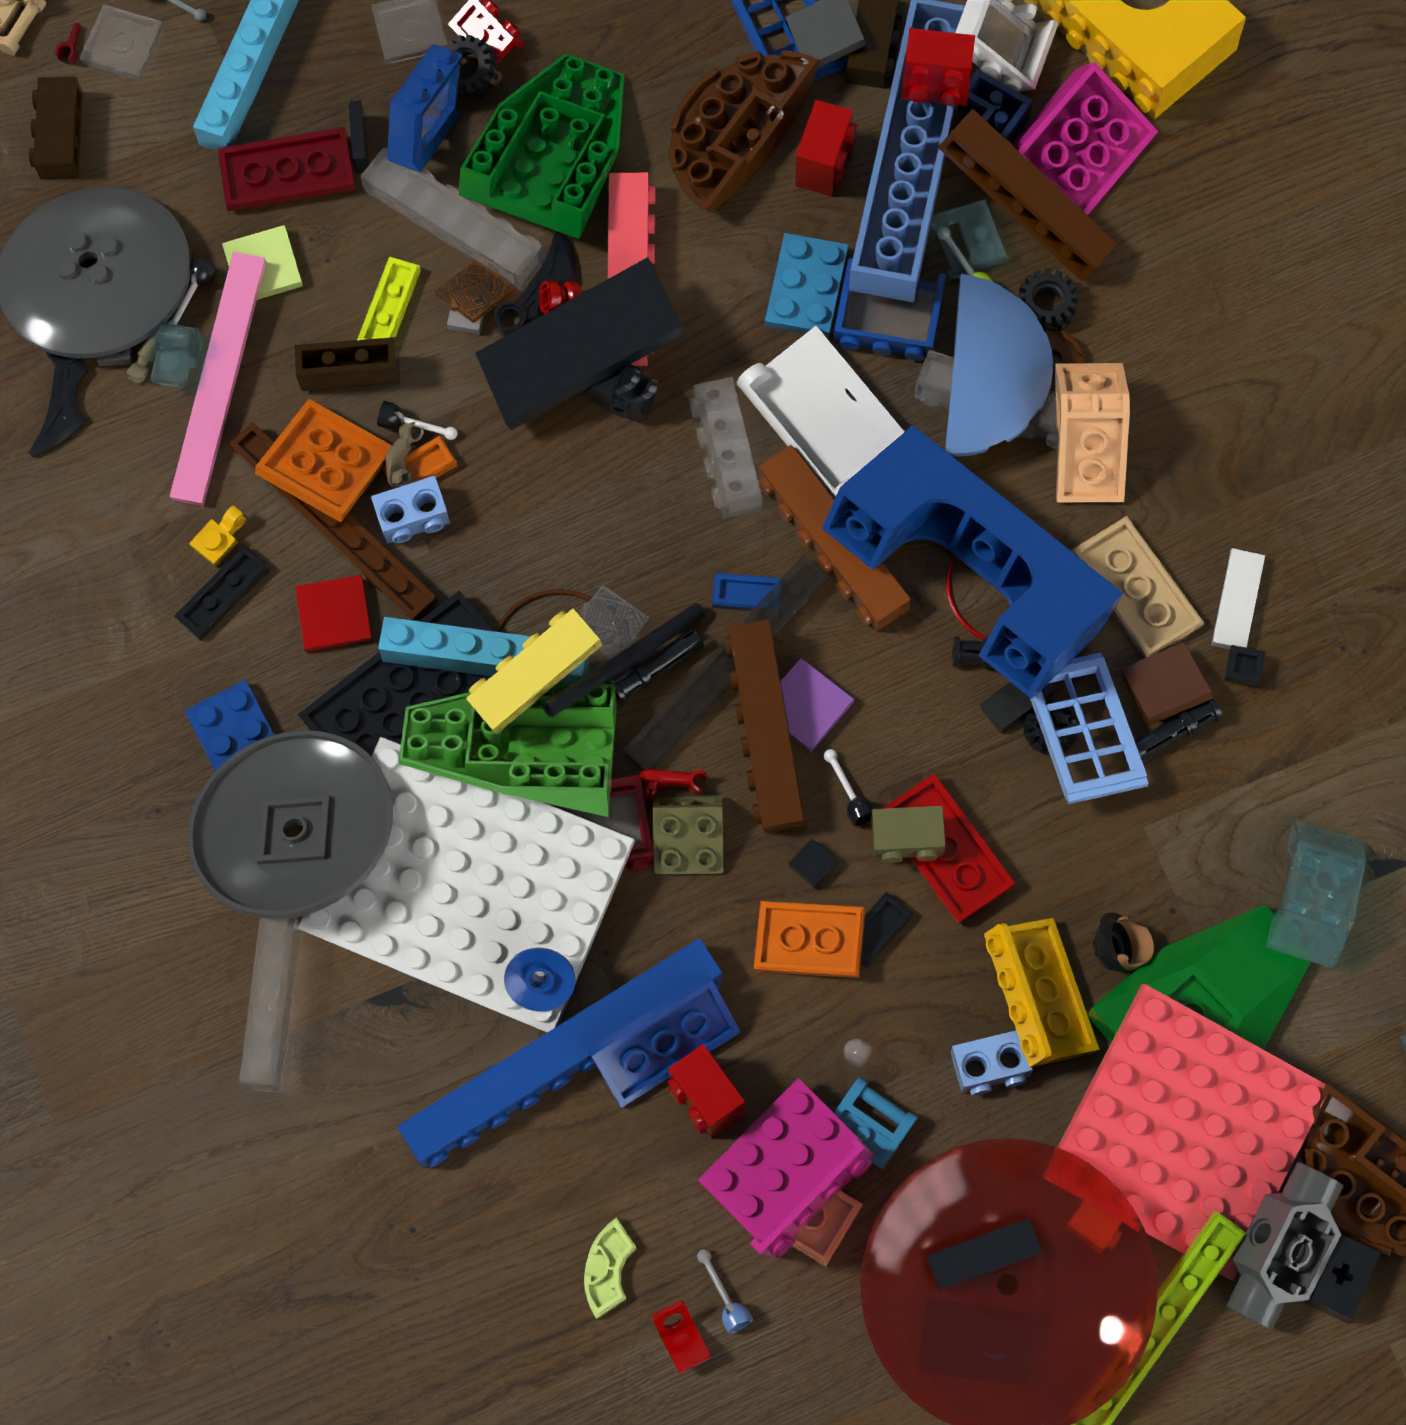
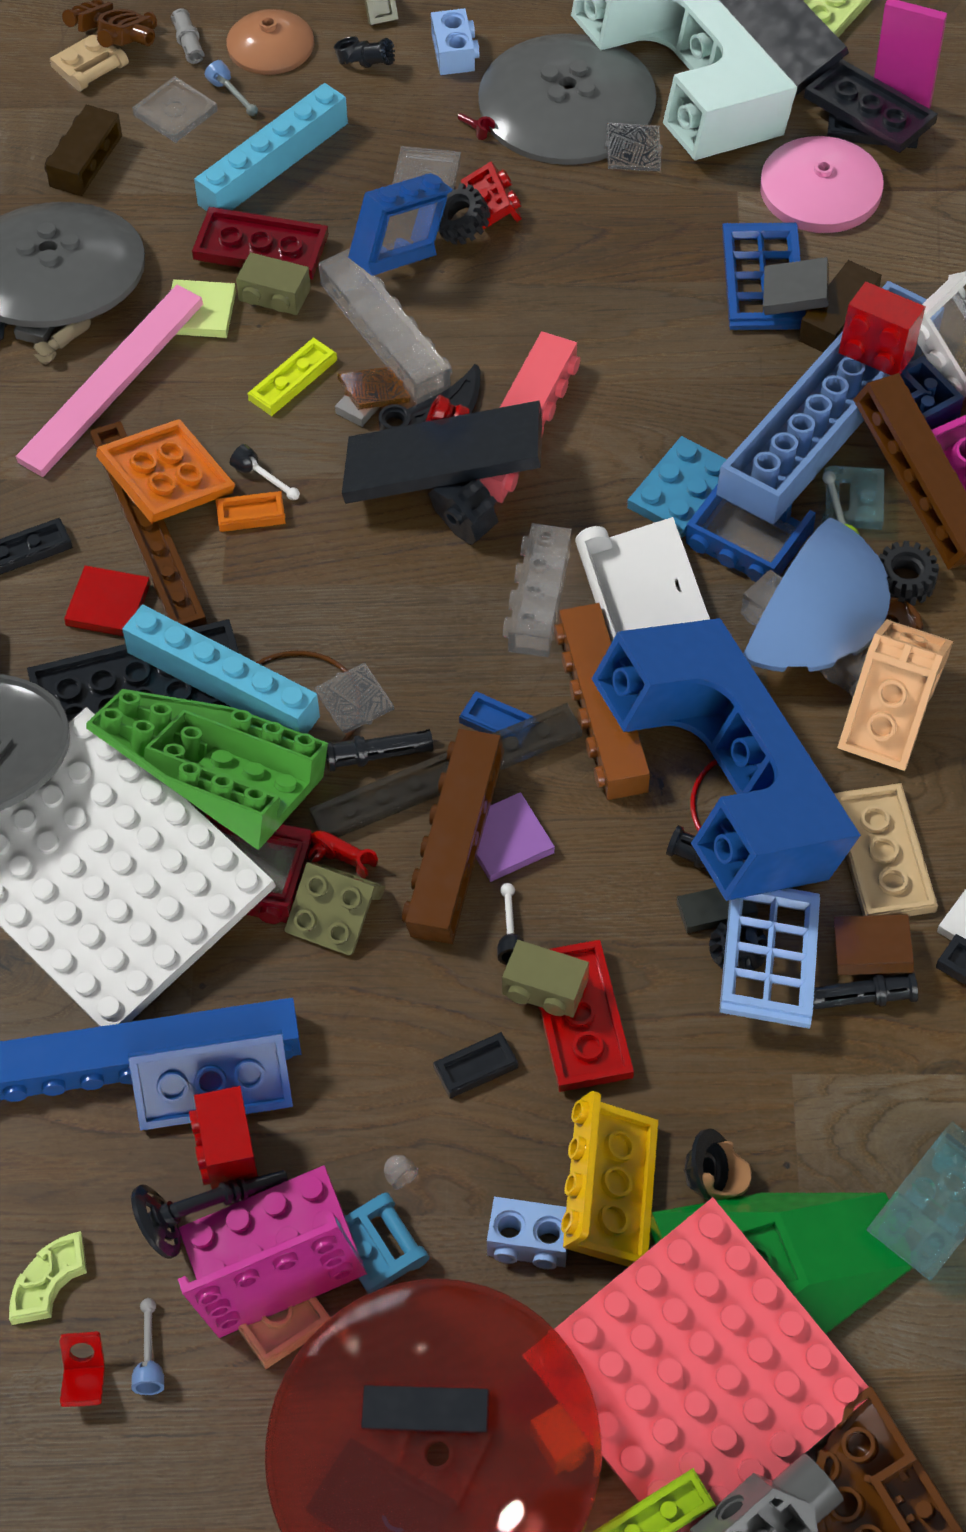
camera: 20 degrees right, 15 degrees down
(69, 45) = (126, 99): dark red hand -> none
(176, 353) = (83, 344): clear light blue brick -> none
(200, 275) = (141, 296): hinge -> none
(216, 540) = (38, 506): yellow plate -> none
(323, 212) = (273, 283): none -> olive brick
(347, 364) = (228, 403): dark brown brick -> none
(358, 136) = (337, 233): black tile -> none
(395, 457) = (228, 495): dark tan arm -> none
(408, 501) = (221, 539): light blue brick -> none
(534, 670) = (250, 692): light yellow brick -> none
(536, 991) = (105, 979): blue dish -> none
(549, 146) = (496, 295): green wedge -> none
(623, 660) = (345, 724): black piece -> none
(683, 1183) = (169, 1214): none -> black dish
(735, 122) = (680, 334): reddish brown brick -> none
(809, 939) = (403, 1046): orange tile -> none
(813, 863) = (442, 980): black tile -> none
(824, 148) = (749, 375): red brick -> none

